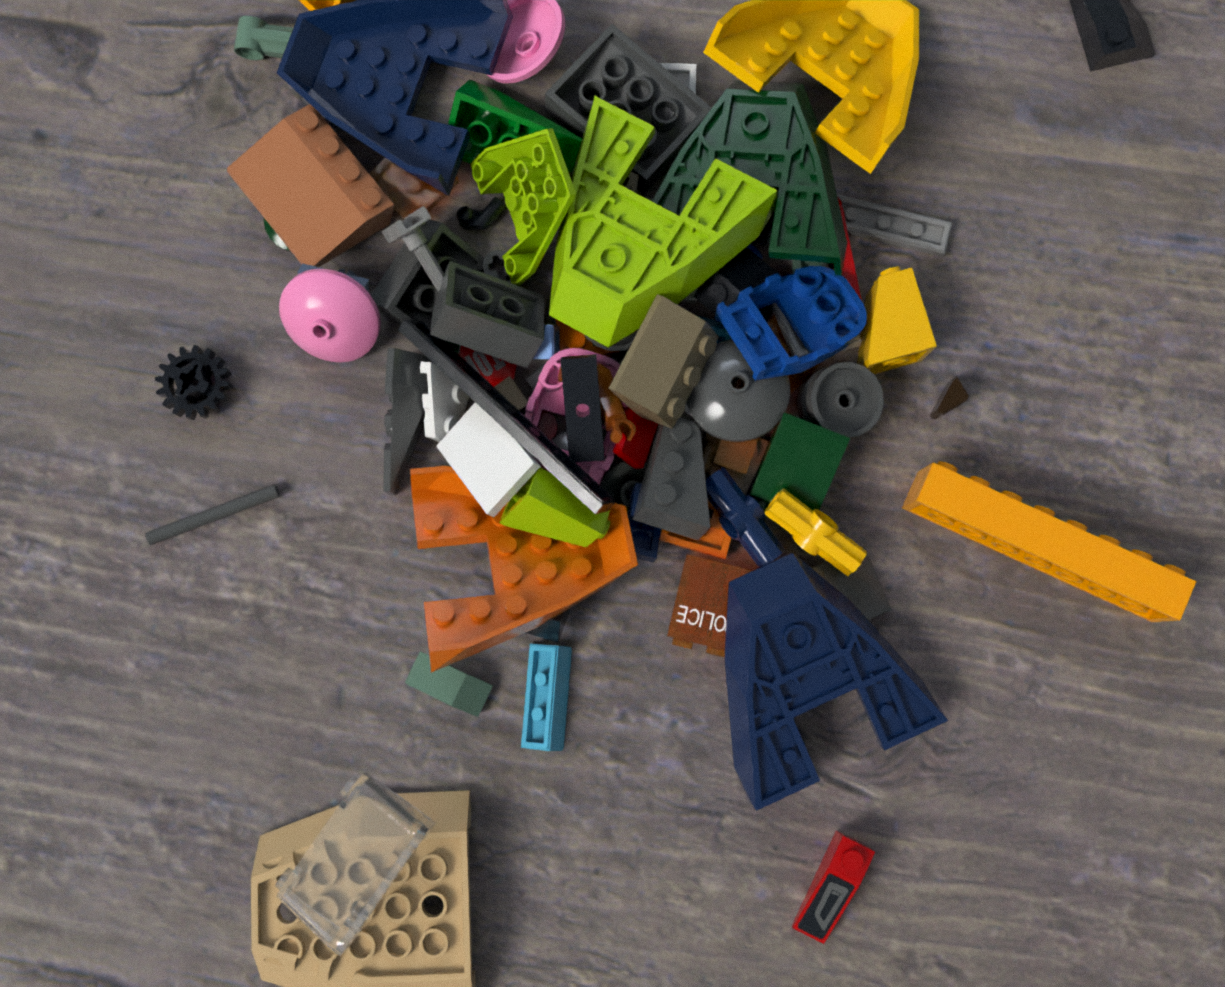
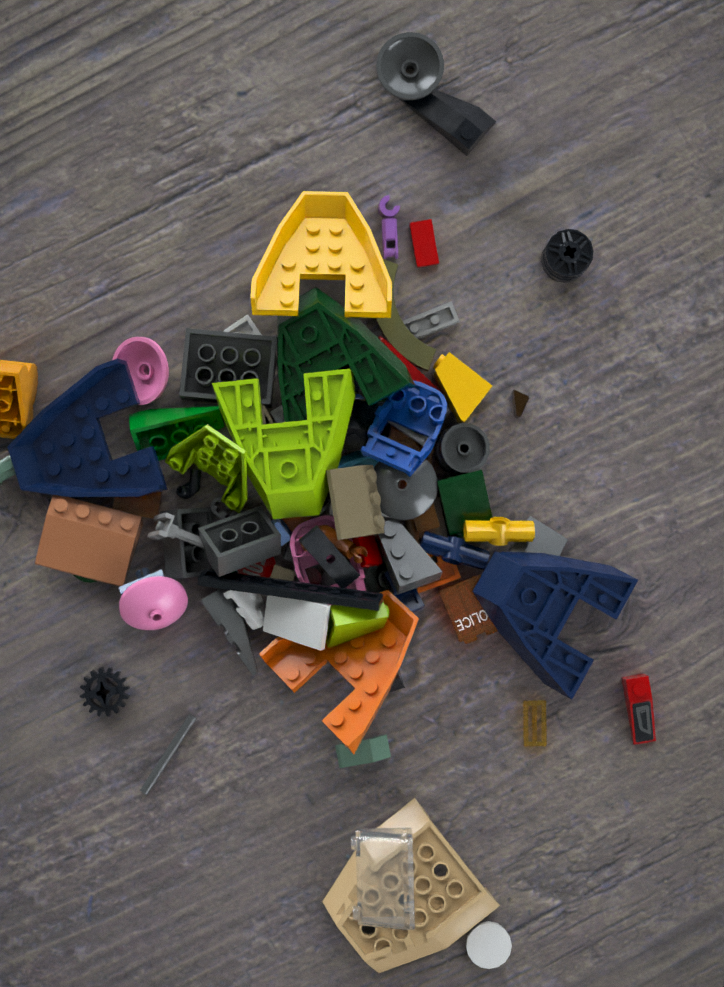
camera: 35 degrees left, 5 degrees up
(546, 697) = (419, 719): medium azure slope -> none
(669, 832) = (534, 742): none -> clear yellow tile
(860, 210) = (398, 334): none -> olive tile
(939, 83) = (389, 228): none -> medium lavender piece
(967, 133) = (424, 243): none -> red tile
(1049, 544) = (627, 446): light orange brick -> none
(1119, 268) = (564, 268): none -> black wheel

